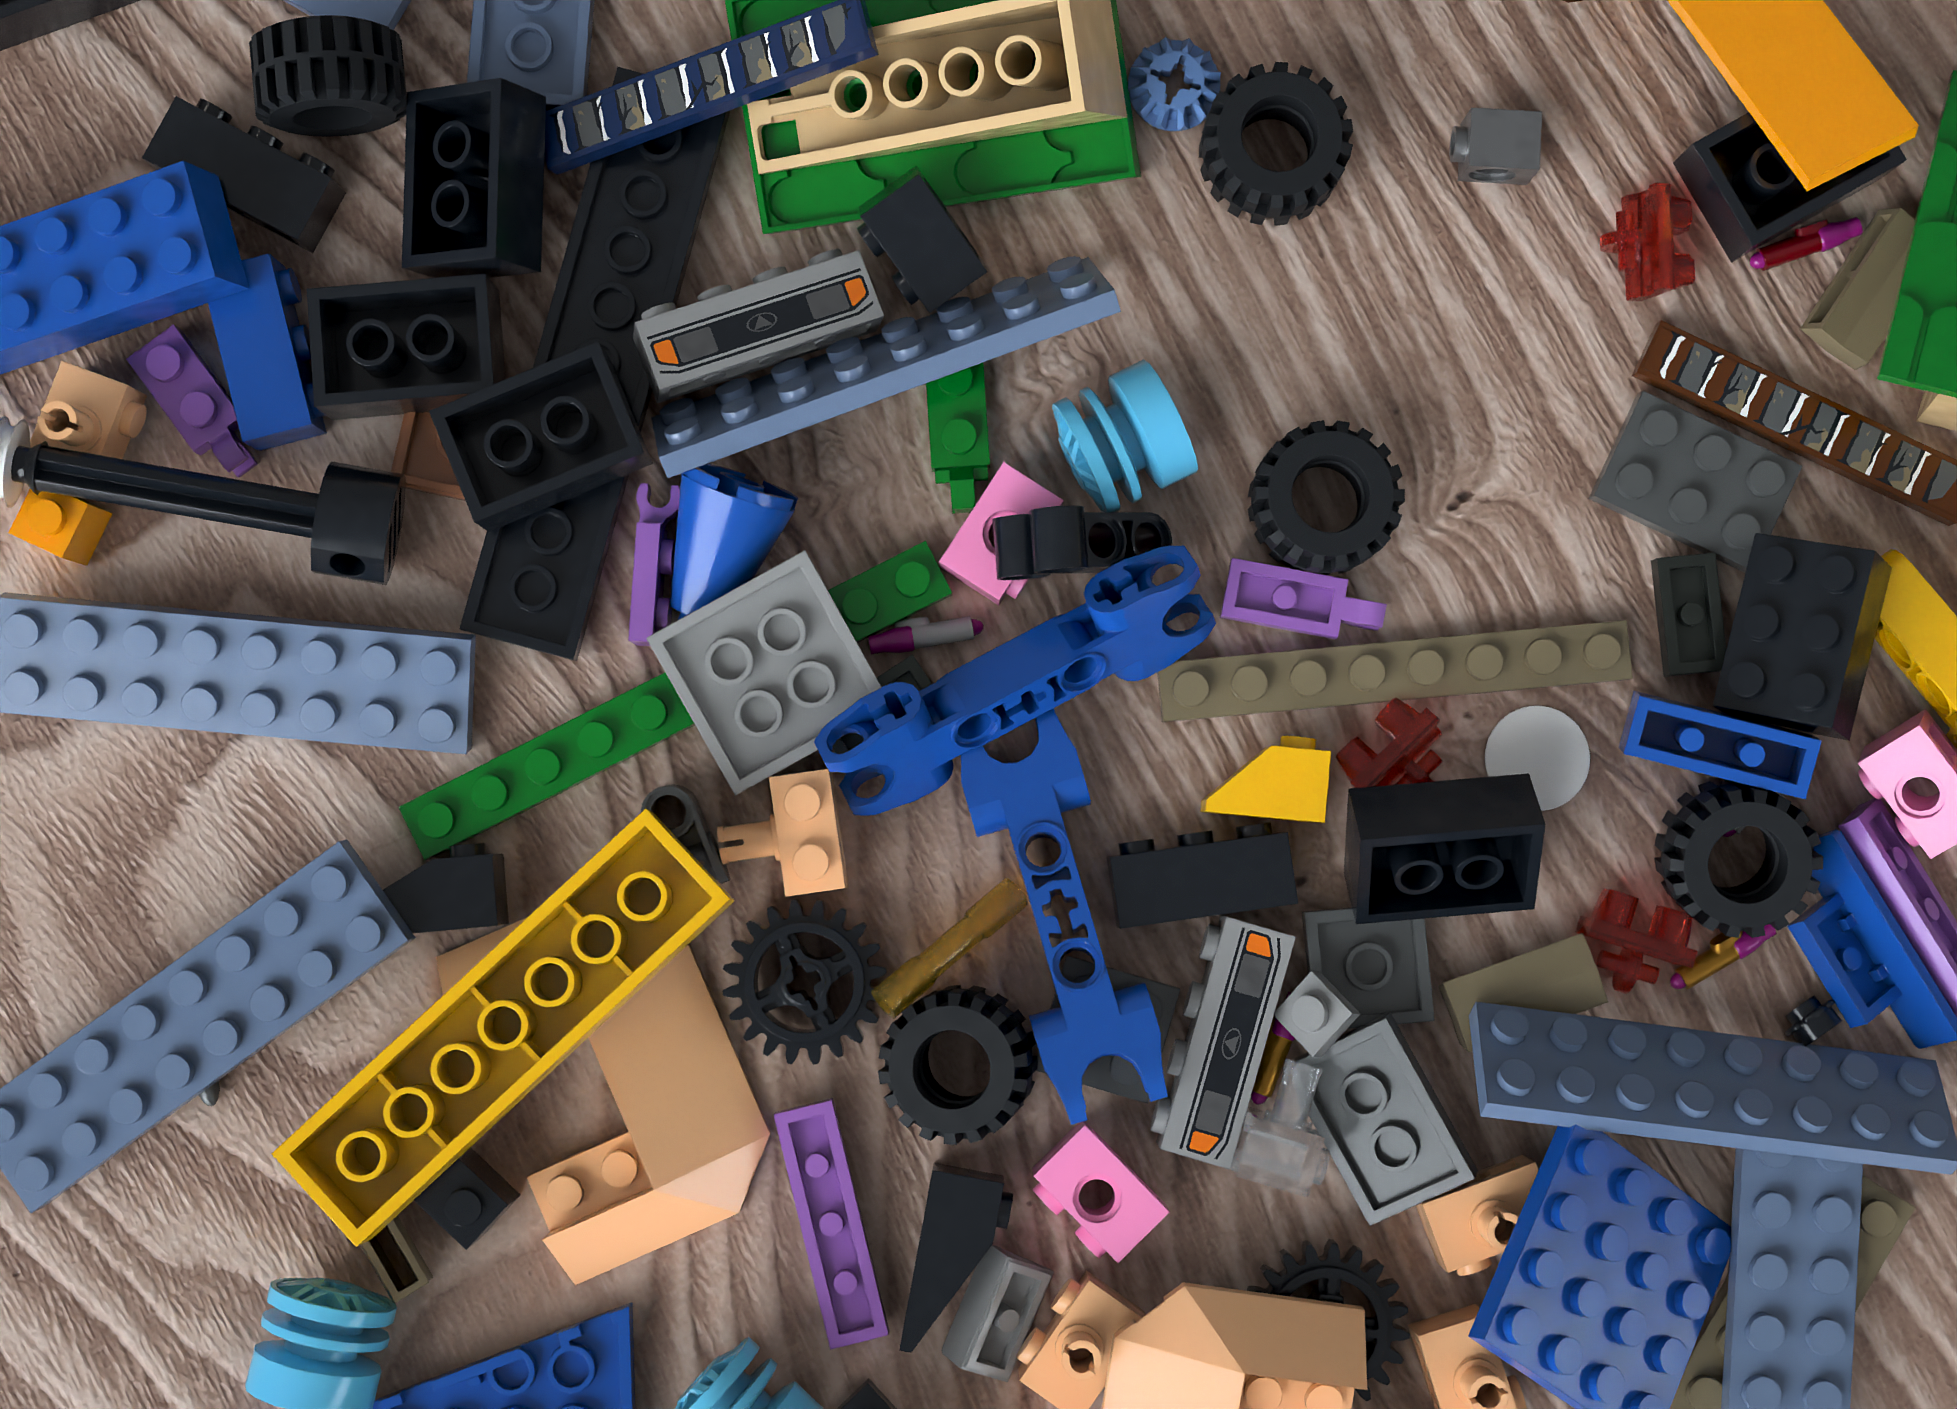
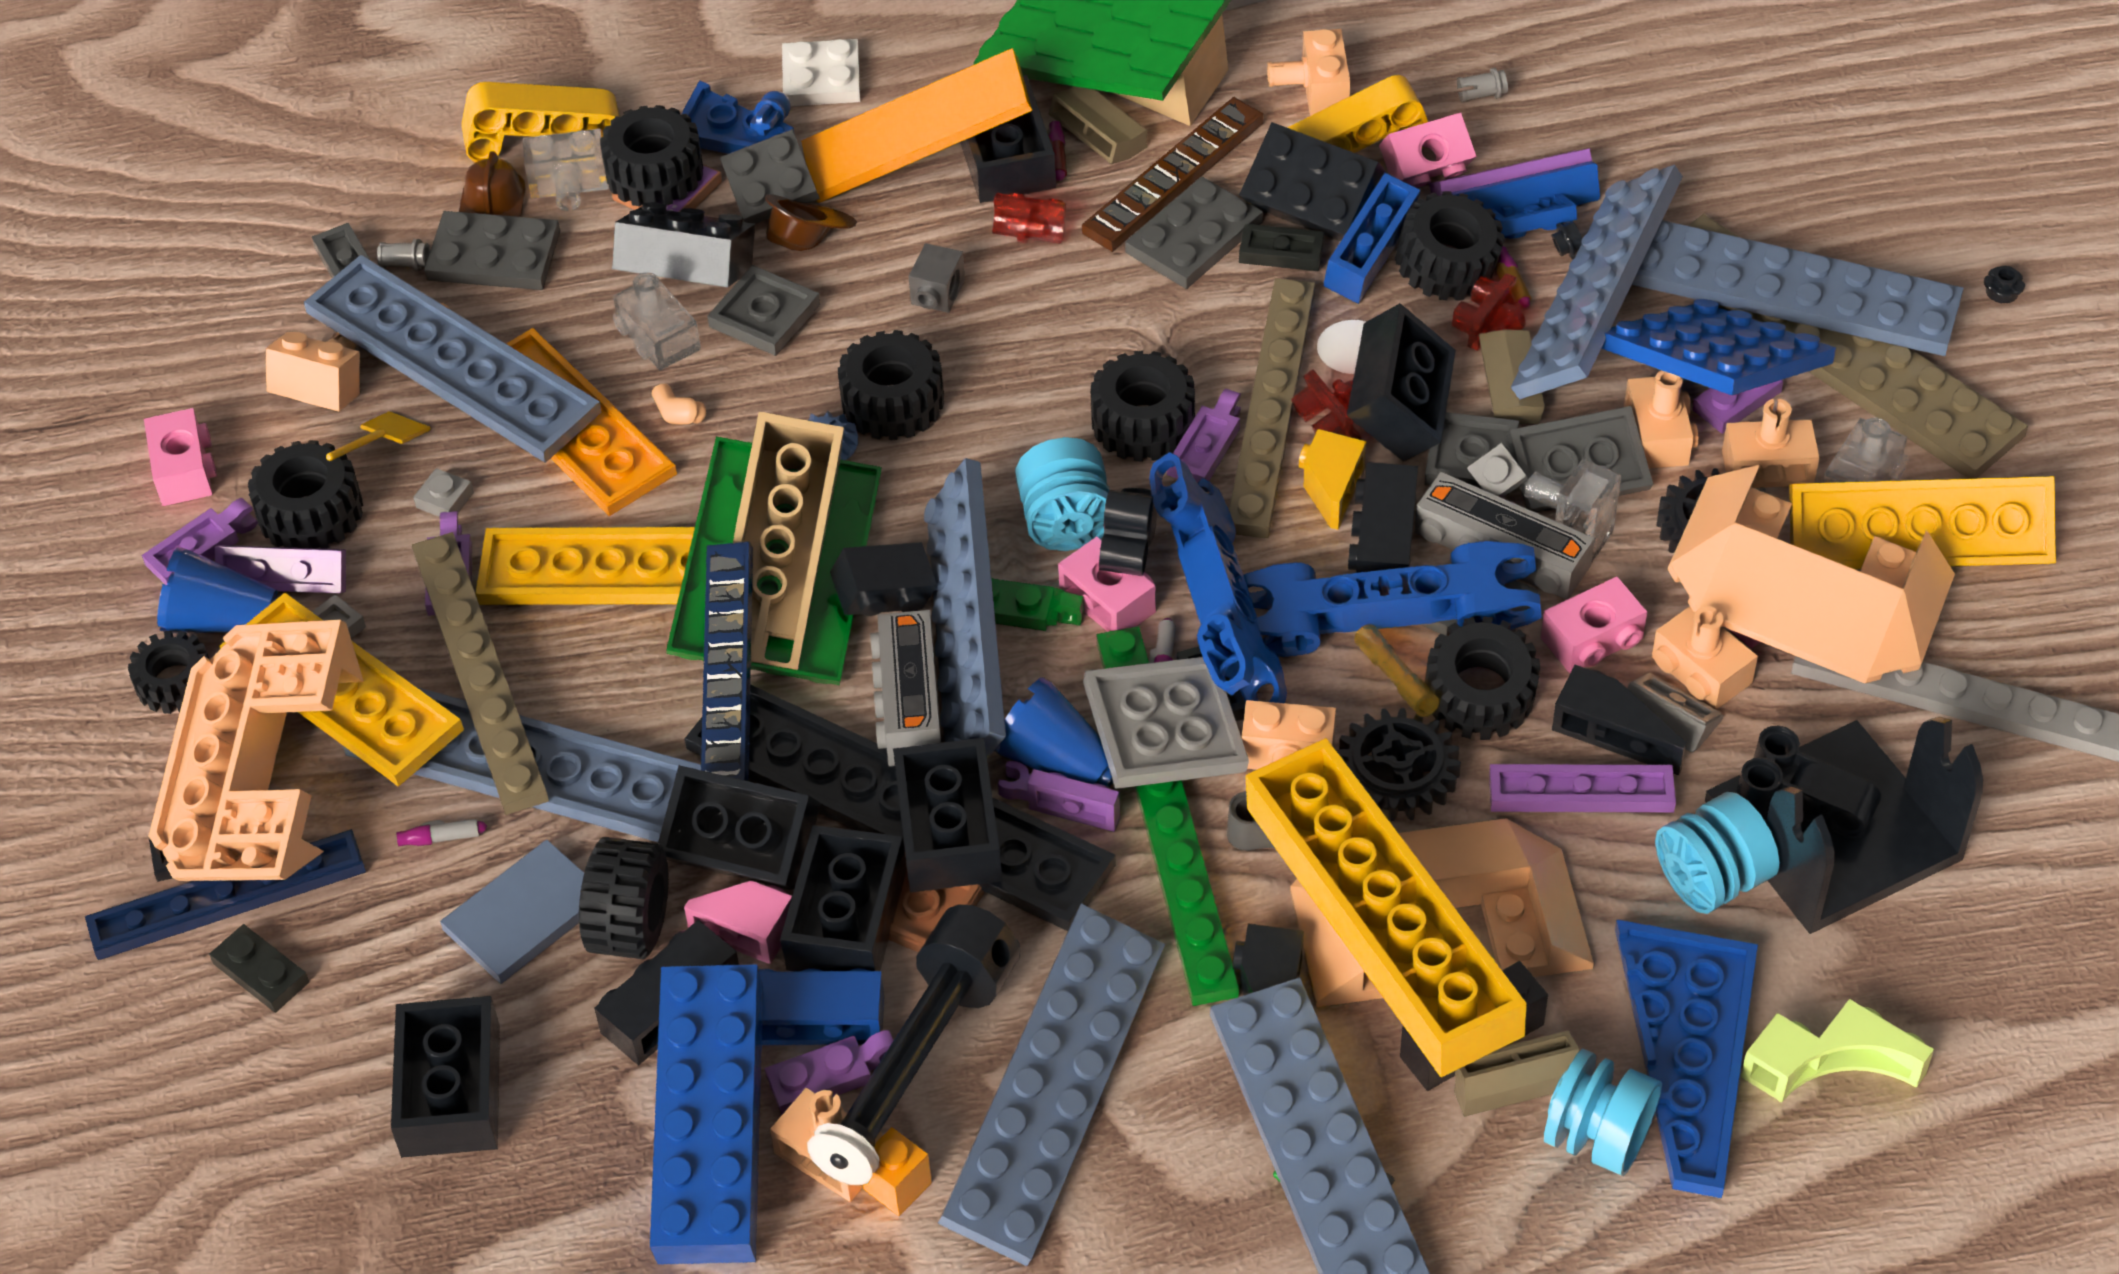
camera: 70 degrees left, 35 degrees down
(365, 231) = (744, 916): none -> bright pink slope

